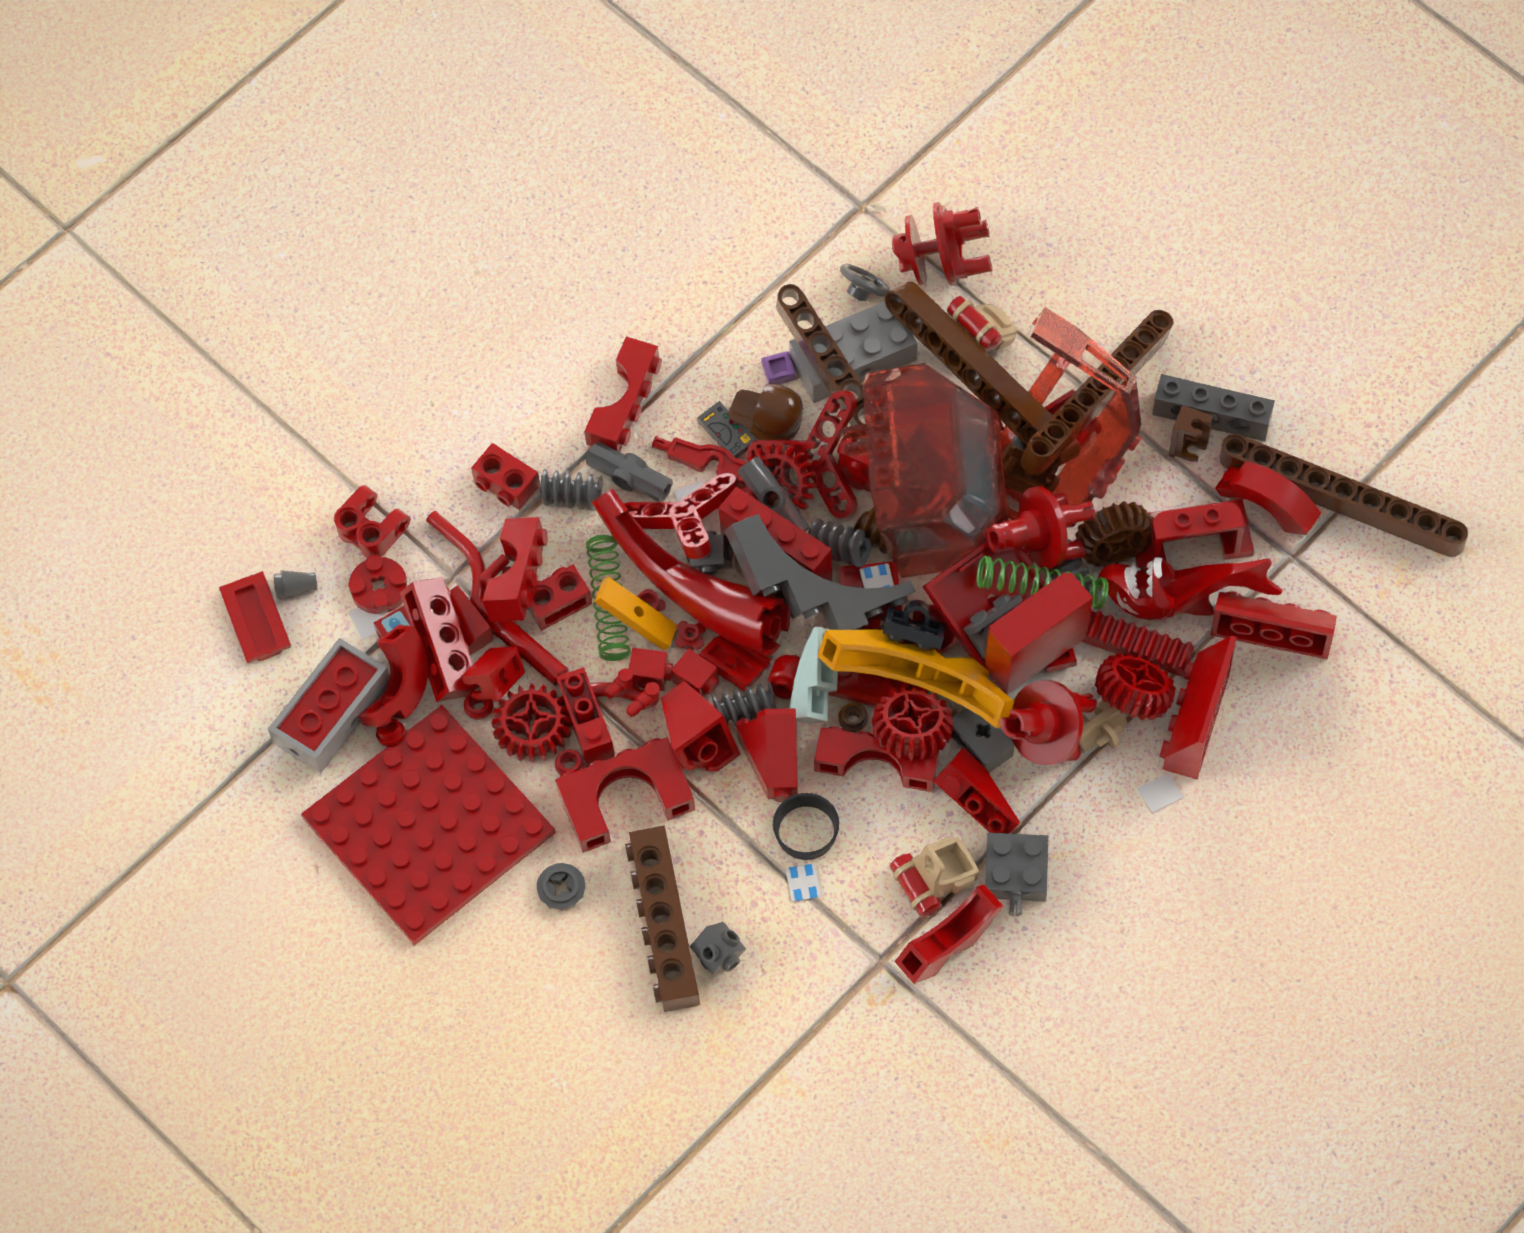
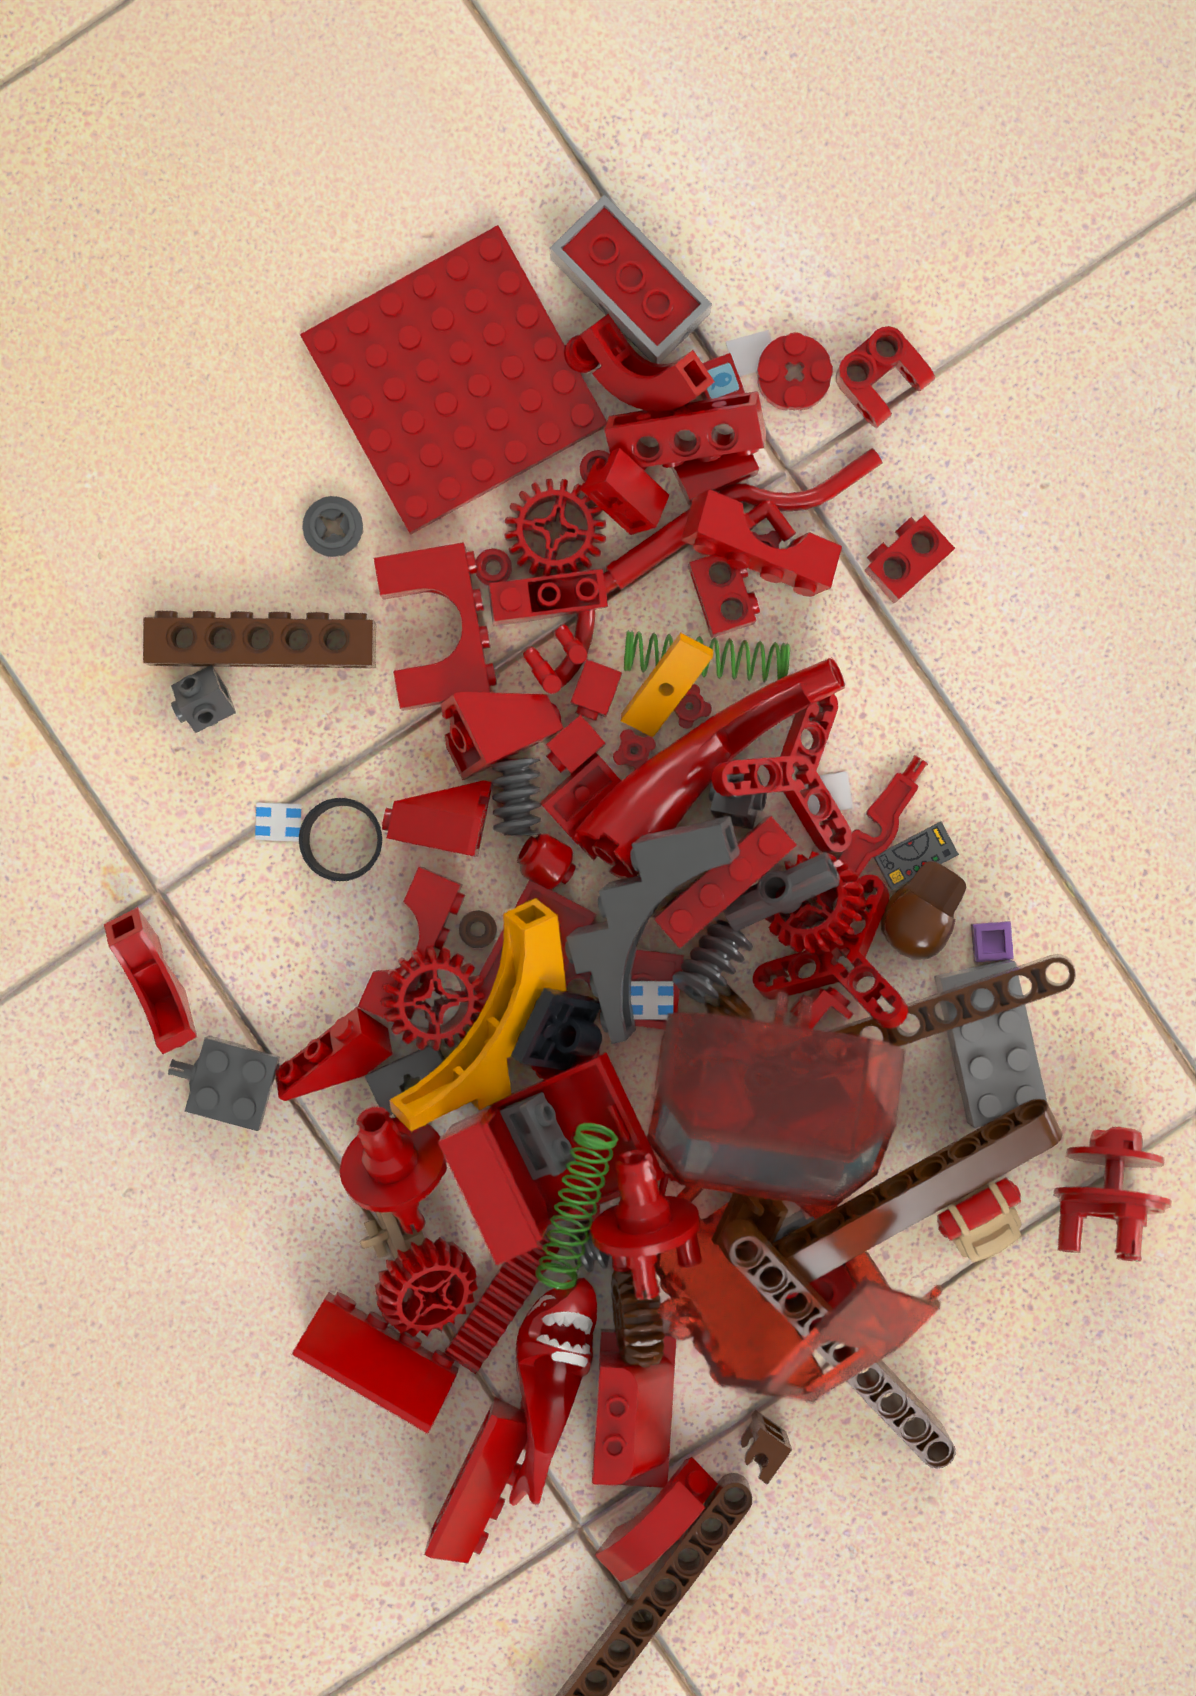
camera: 100 degrees right, 25 degrees up
(255, 617) = (783, 209): red piece -> none
(293, 583) = (818, 263): dark grey cone -> none
(569, 490) = (868, 637): dark grey piece -> none
(612, 423) = (952, 707): red arch -> none
(629, 472) = (880, 718): dark grey piece -> none
(813, 682) = (515, 883): light aqua slope -> none
(863, 282) = (1085, 1075): dark grey piece -> none
(937, 871) = (241, 982): tan piece -> none
(1160, 792) = (298, 1281): white sticker -> none
(1231, 410) = (802, 1486): dark grey brick -> none

